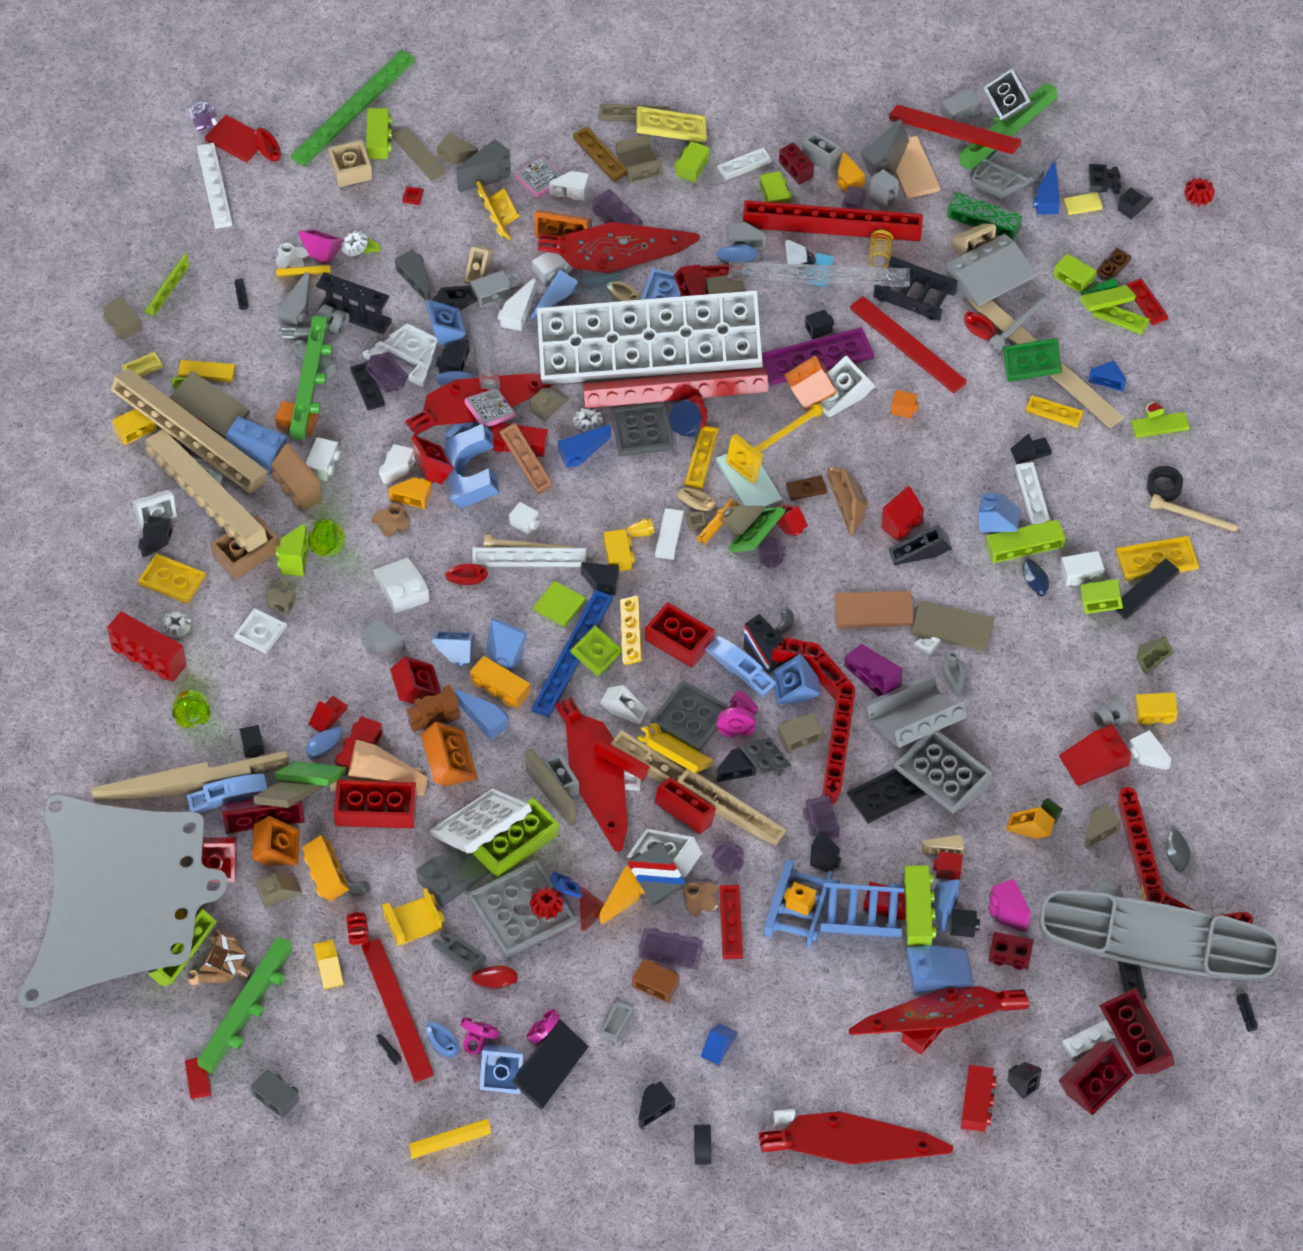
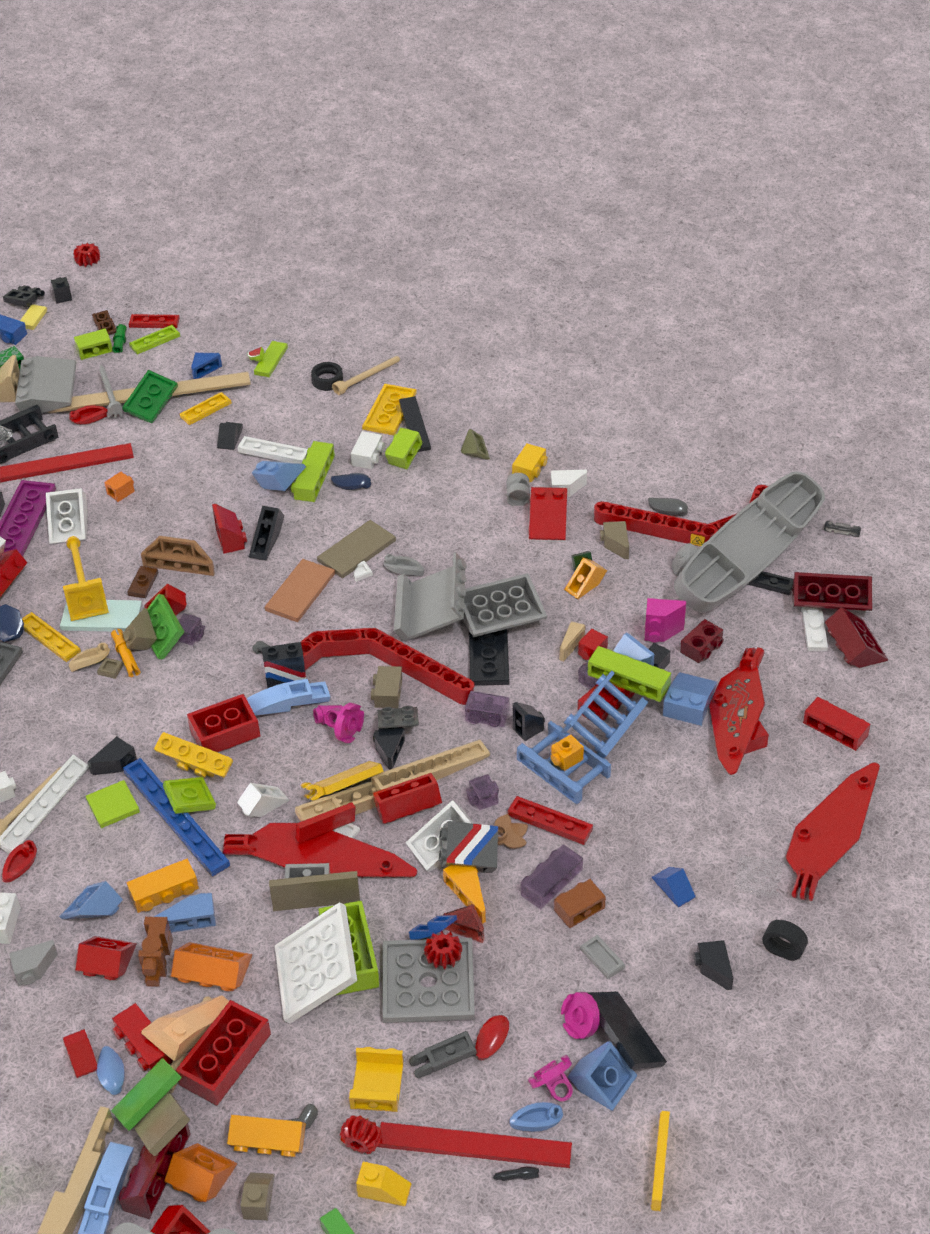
camera: 60 degrees left, 10 degrees down
(252, 741) = (59, 1138): black brick -> none
(450, 875) = (349, 1024): dark grey slope -> none
(505, 644) = (127, 858): medium blue slope -> none
(618, 550) = (93, 732): yellow brick -> none
(641, 528) = (86, 706): yellow cone -> none
(669, 534) = (107, 692): white tile -> none
(690, 715) = (311, 756): dark grey plate -> none
(783, 1118) = (783, 870): white tile -> none
(795, 681) = (334, 667): medium blue slope -> none
(811, 382) = (47, 529): slope -> none
(874, 670) = (367, 609): magenta wedge -> none
(1024, 1078) = (836, 681): black slope -> none
(1107, 298) = (133, 336): lime tile -> none

